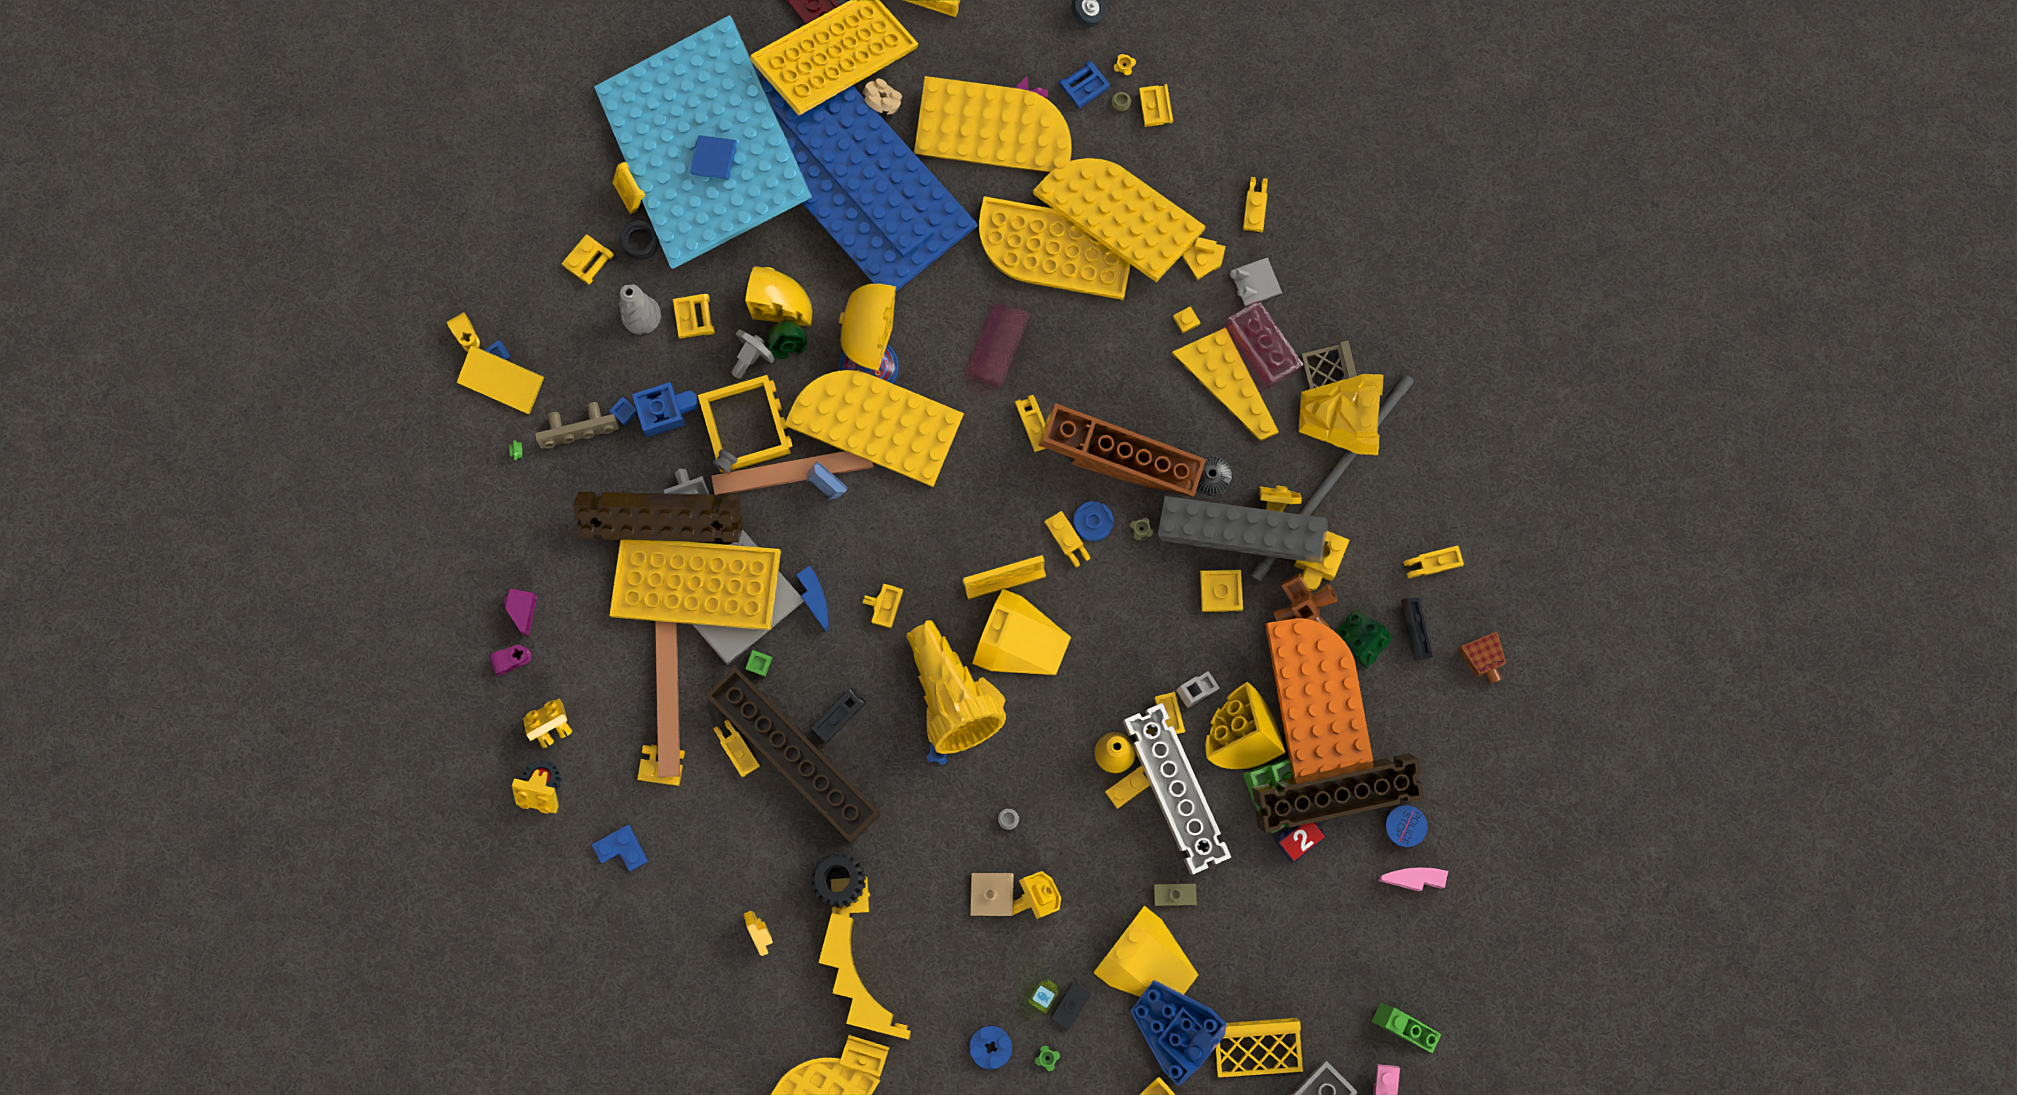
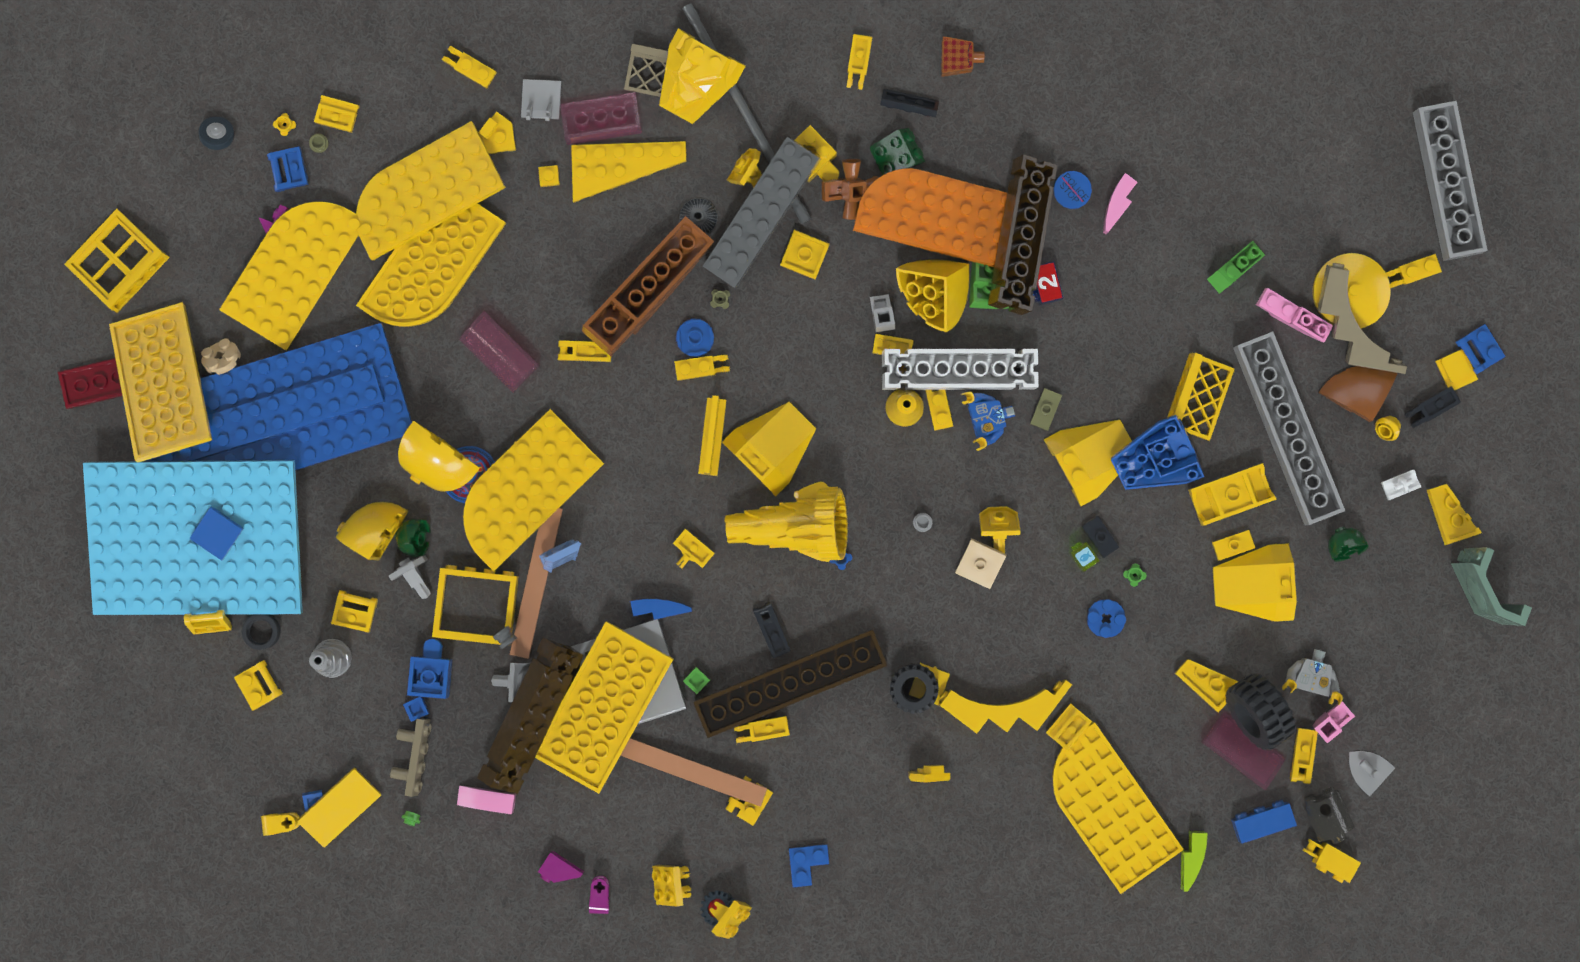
camera: 65 degrees left, 10 degrees up
(562, 513) = (486, 799): none -> bright pink slope
(1140, 837) = (987, 417): none -> blue torso

